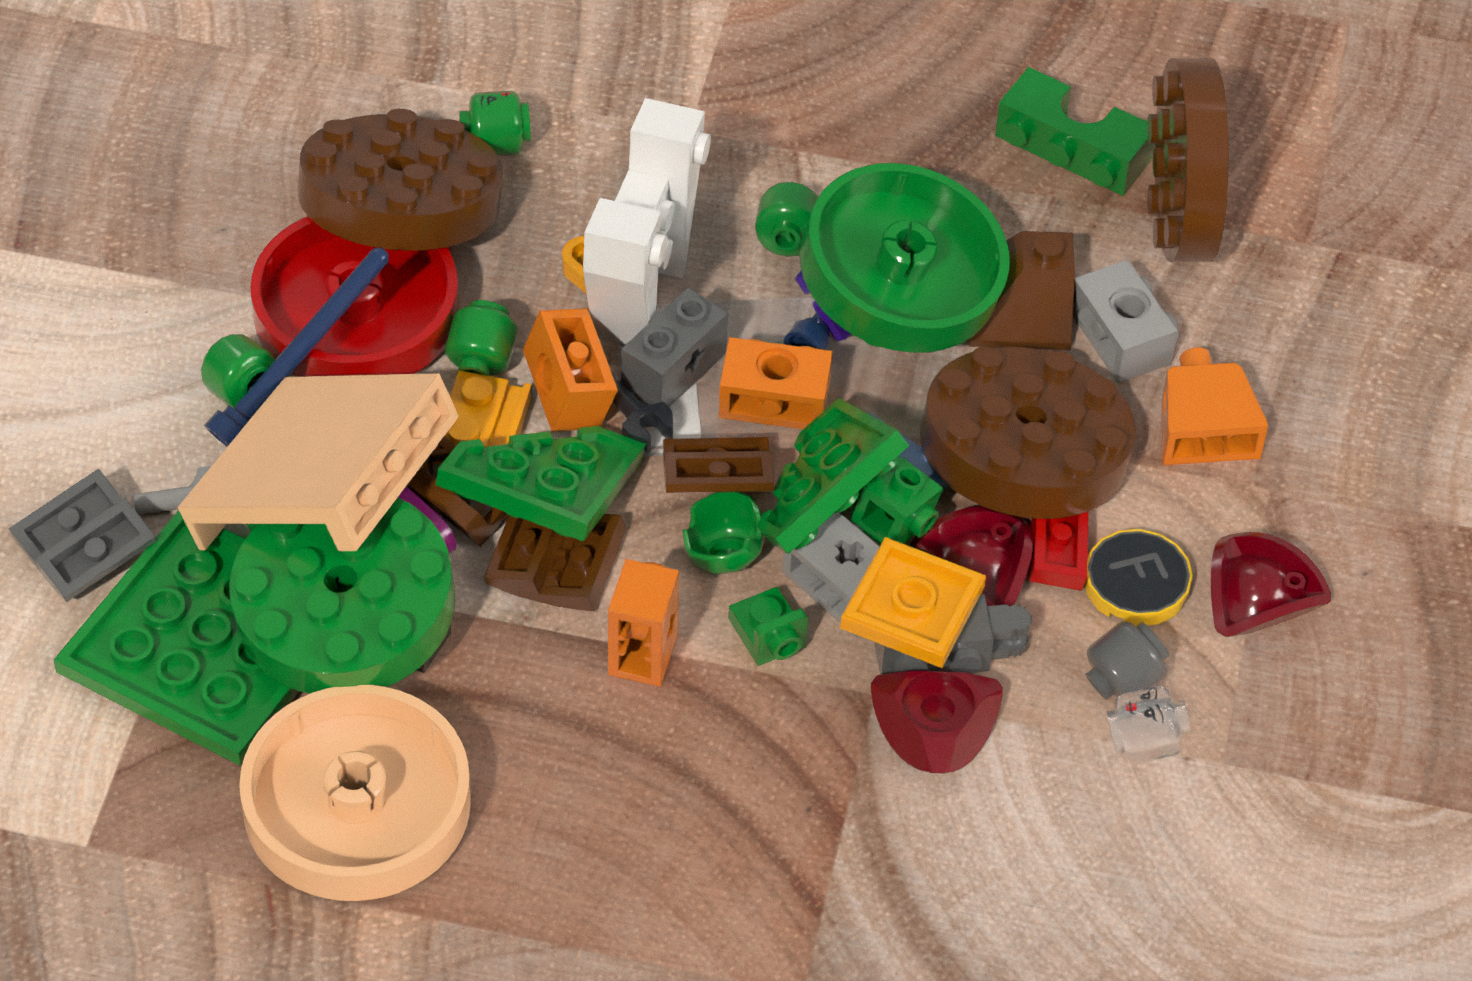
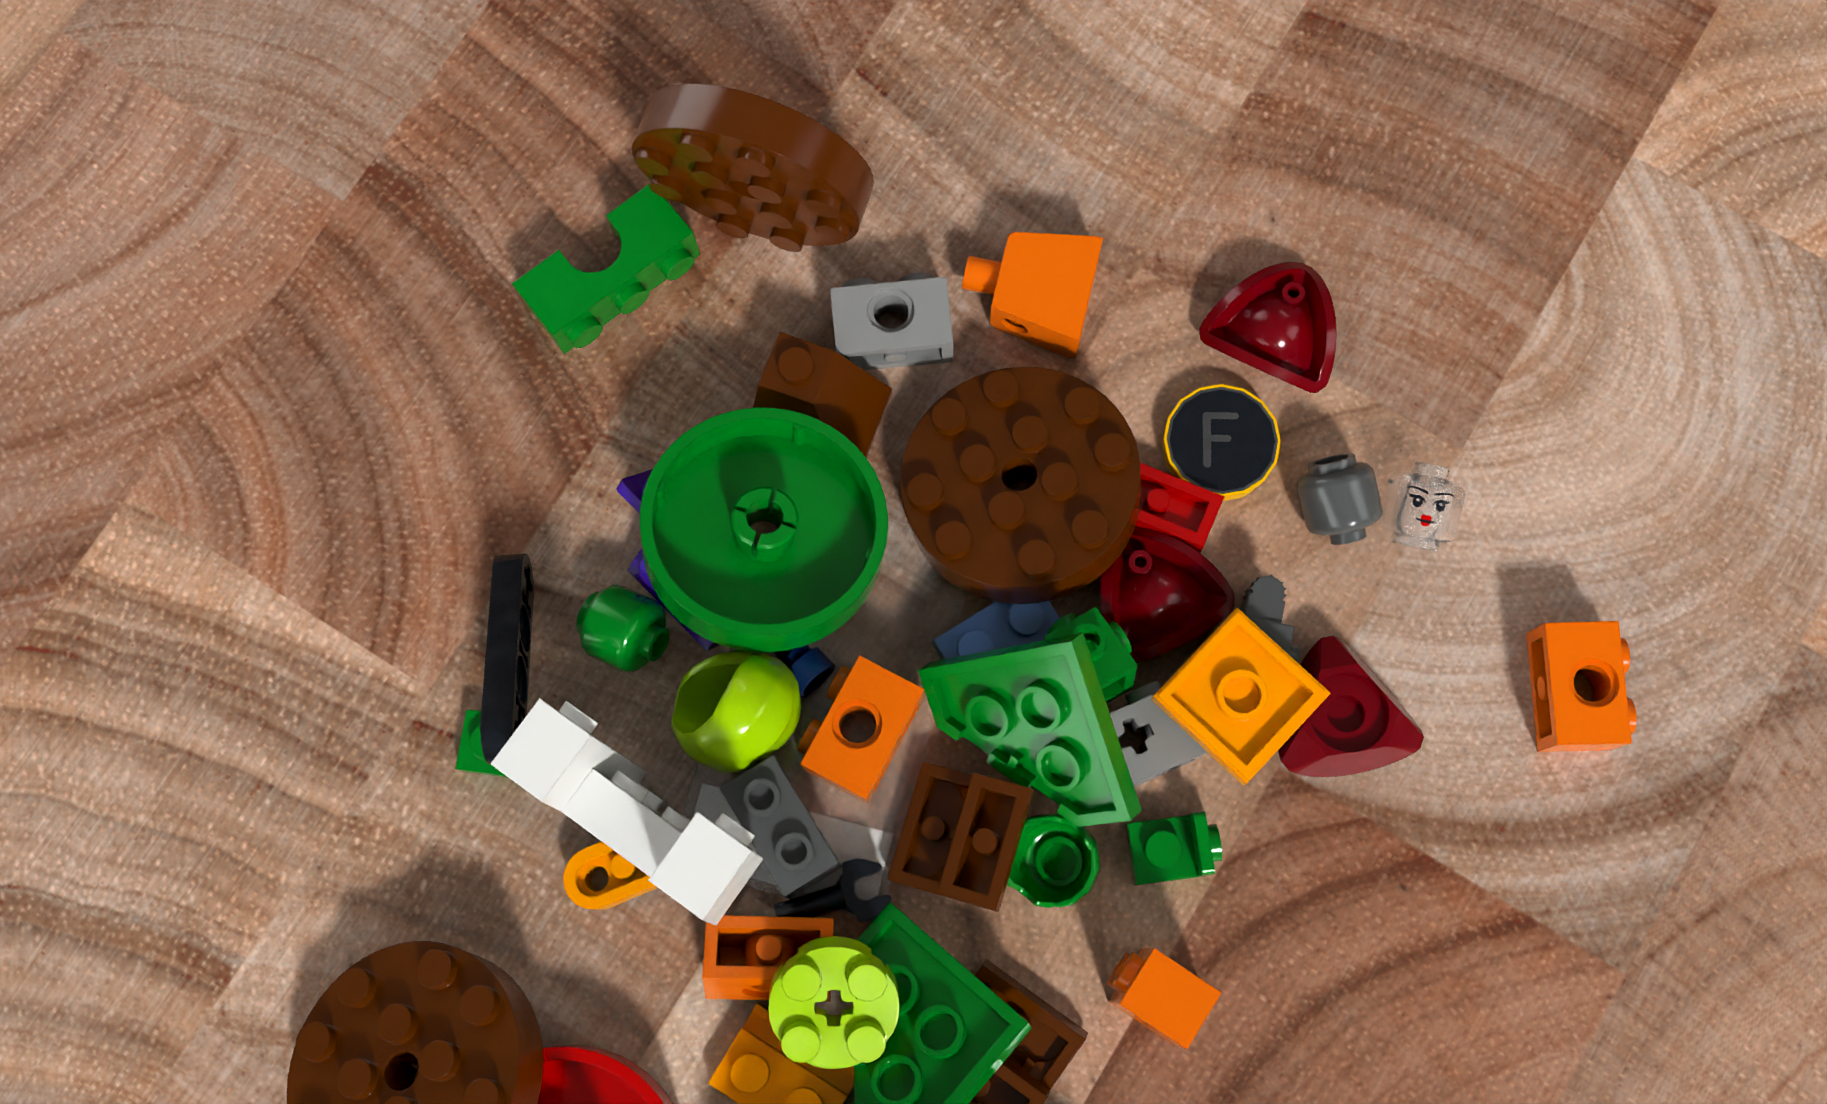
camera: 65 degrees left, 25 degrees up
(482, 338) = (678, 1044): green head -> none
(498, 120) = (350, 920): green head -> none
(538, 372) = (826, 1039): none -> lime plate
(756, 289) = (735, 709): none -> lime piece
(784, 148) = (507, 651): none -> black beam
(1059, 857) = (1562, 716): none -> orange brick

